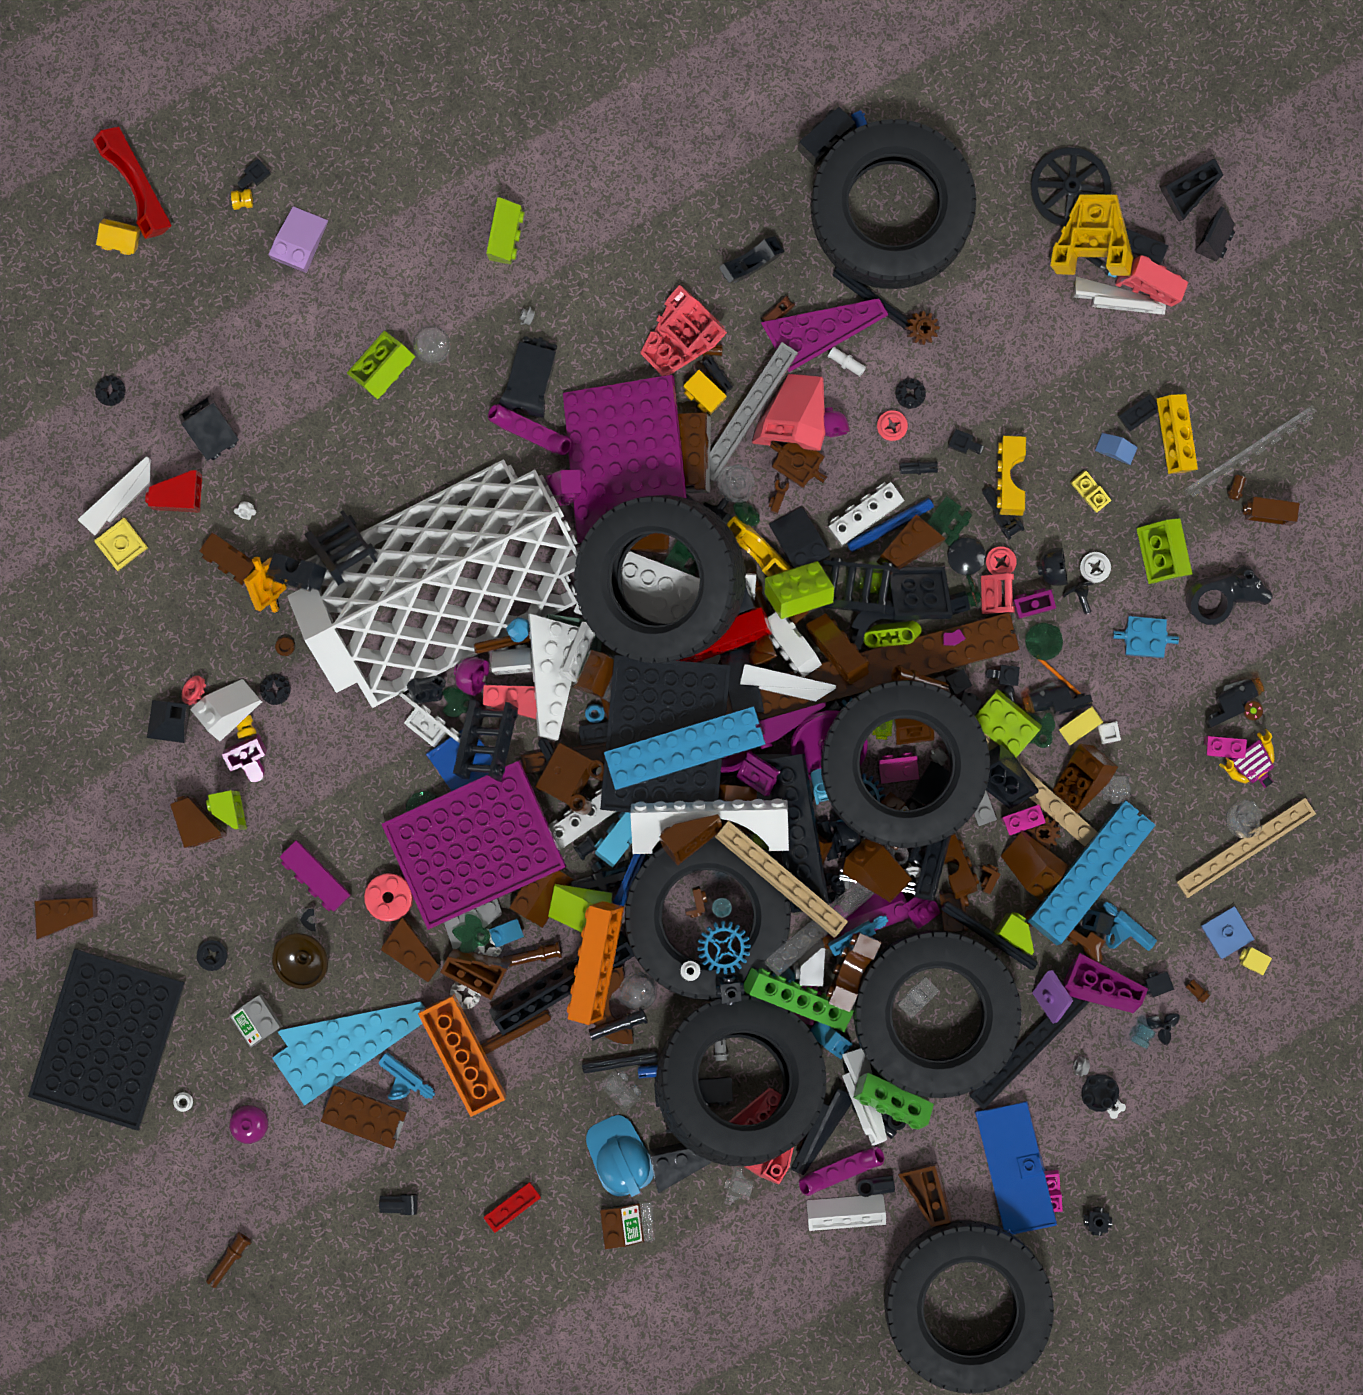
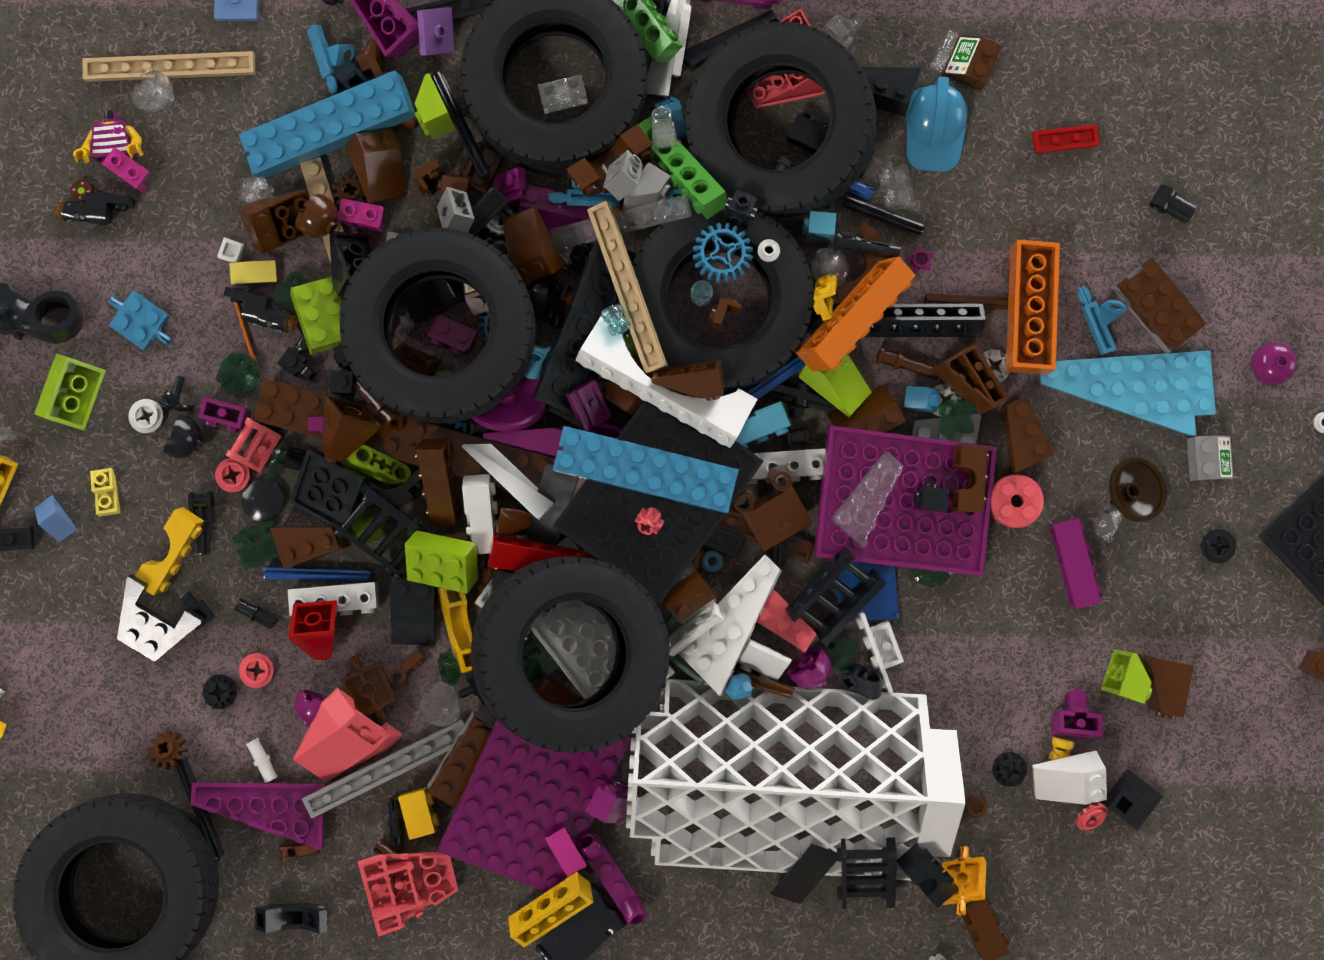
camera: 160 degrees left, 0 degrees up
(386, 519) = (805, 874): none -> black piece
(425, 877) = (973, 461): none -> reddish brown arch
(456, 857) = (931, 498): none -> black brick
(504, 818) = (863, 505): none -> clear wing
(562, 380) = (550, 909): none -> yellow brick
(565, 1043) = (925, 256): none -> magenta plate
(576, 430) = (566, 852): none -> dark pink slope
(628, 963) = (824, 289): none -> yellow bracket
(659, 712) = (649, 521): none -> coral gear
(664, 1020) = (819, 227): none -> medium azure brick
(774, 848) = (616, 321): none -> clear light blue wheel
(827, 1020) = (663, 128): none -> clear piece
(835, 963) = (623, 175): none -> light grey brick
(864, 484) = (314, 628): none -> red slope
(931, 647) = (345, 428): none -> reddish brown slope
(947, 860) = (455, 210): none -> light grey brick
(992, 406) = (147, 630): none -> wing
(1051, 796) = (318, 218): none -> reddish brown cylinder

